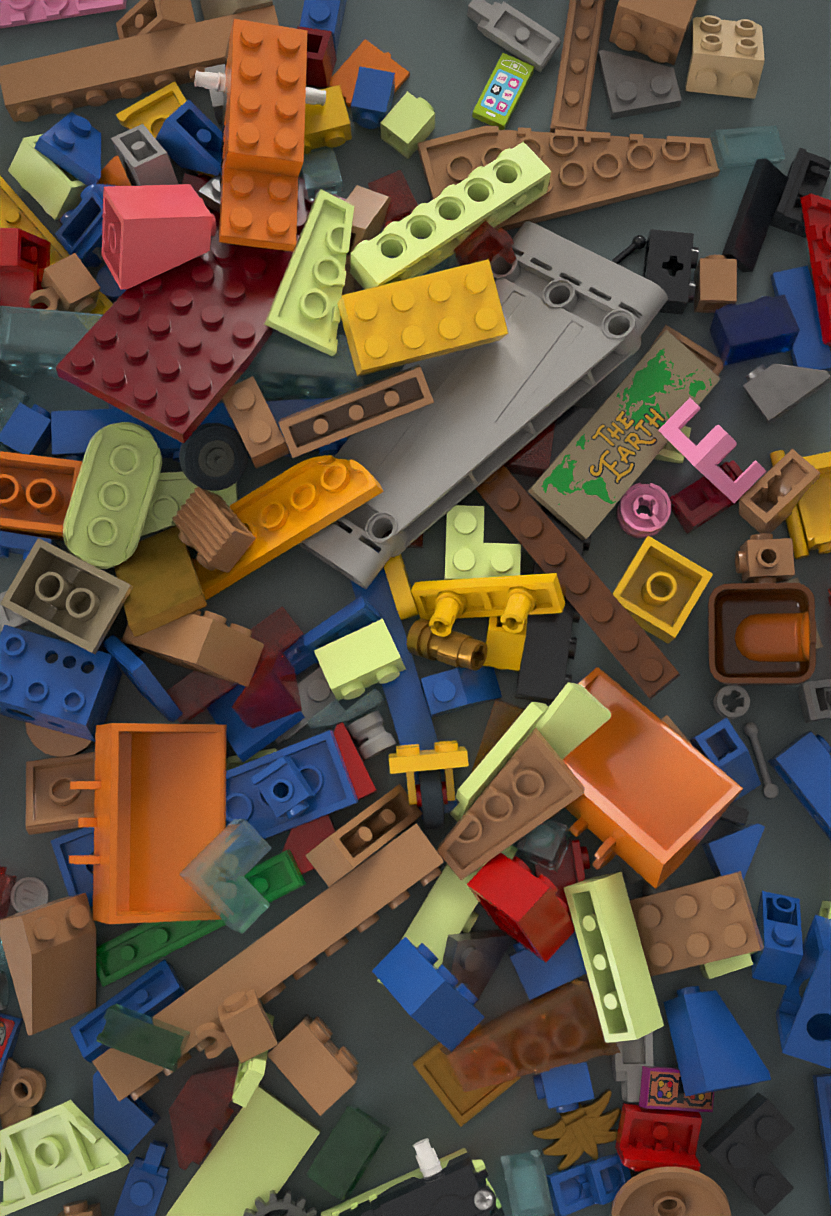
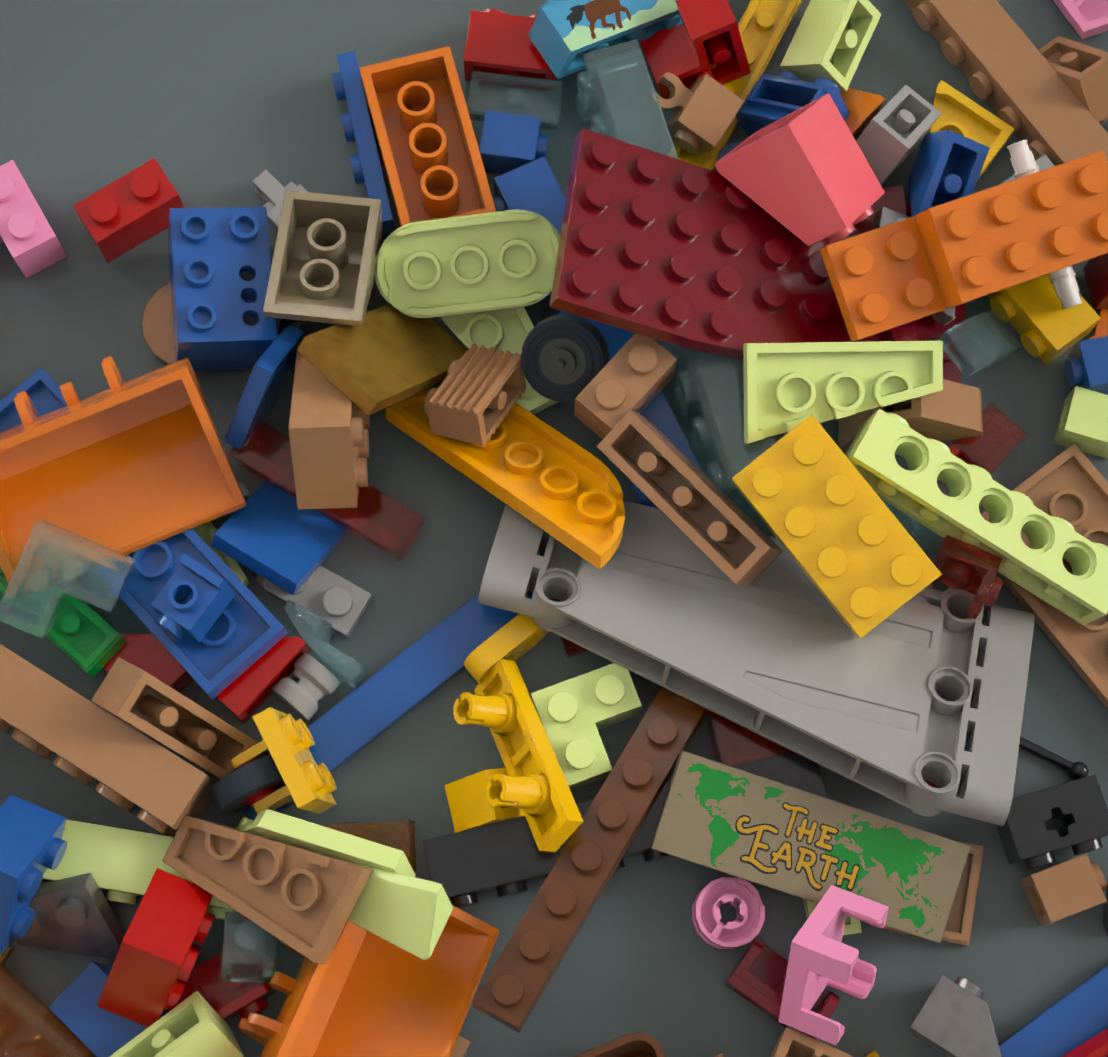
camera: 65 degrees right, 5 degrees down
(48, 793) = (81, 344): medium nougat tile -> none
(74, 147) = (875, 49): blue wing -> none
(271, 692) = (306, 540): clear red slope -> none
(344, 622) = (411, 592): blue hinge -> none
(360, 661) = (388, 633): yellowish green brick -> none
(455, 649) = (446, 740): pearl gold axle -> none
(459, 689) = (405, 770): blue slope -> none
(661, 589) = (629, 969): yellow brick -> none
(754, 329) = (1026, 962): clear blue brick -> none

